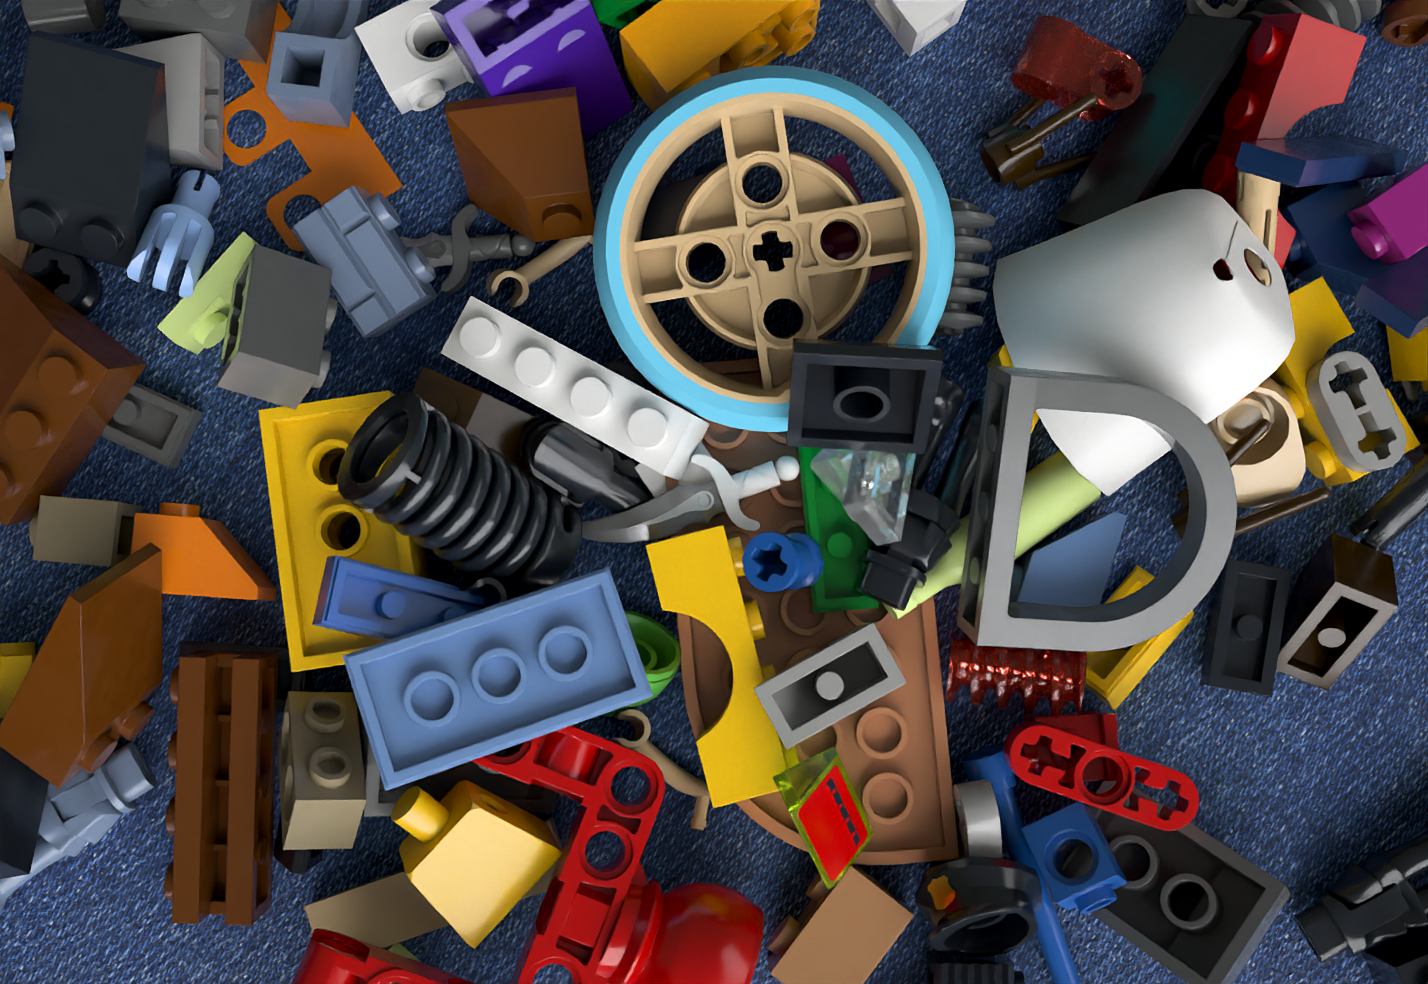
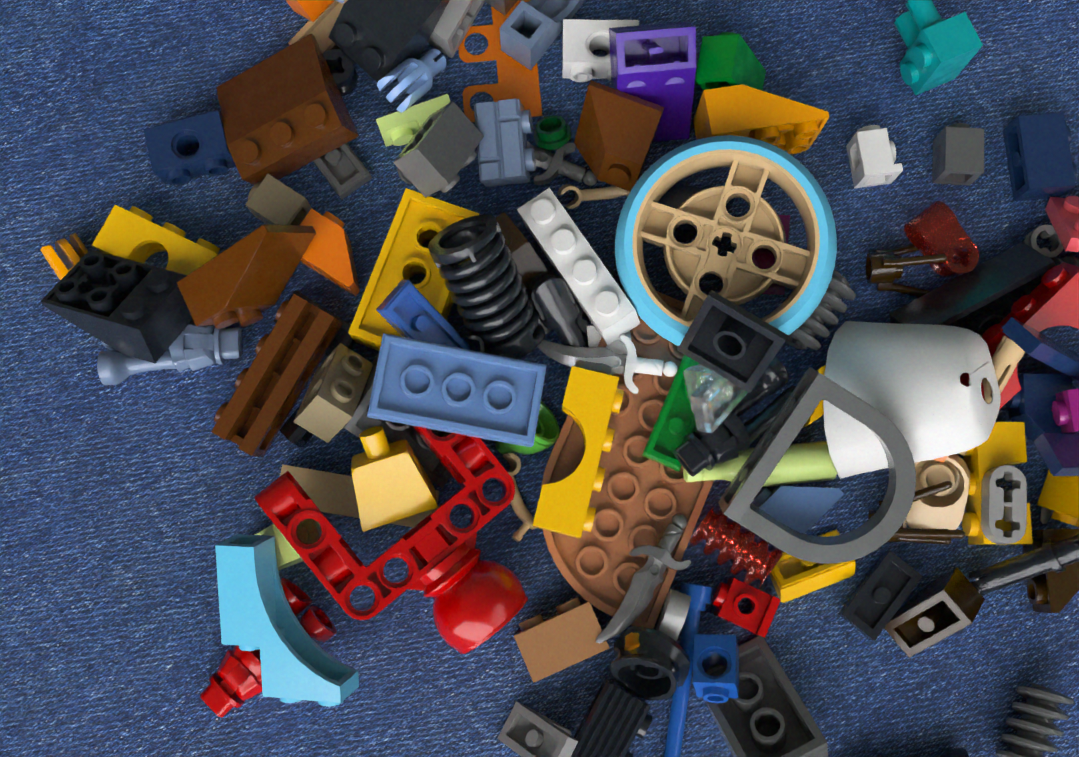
camera: 30 degrees right, 5 degrees down
(430, 206) = (552, 132): none -> dark green plate
(782, 561) = (629, 414): blue bush -> none
(825, 812) = (592, 562): slope -> none
(829, 684) = (632, 492): light grey slope -> none
(914, 786) = (647, 578): none -> piece
(1139, 808) = (784, 642): red beam -> none

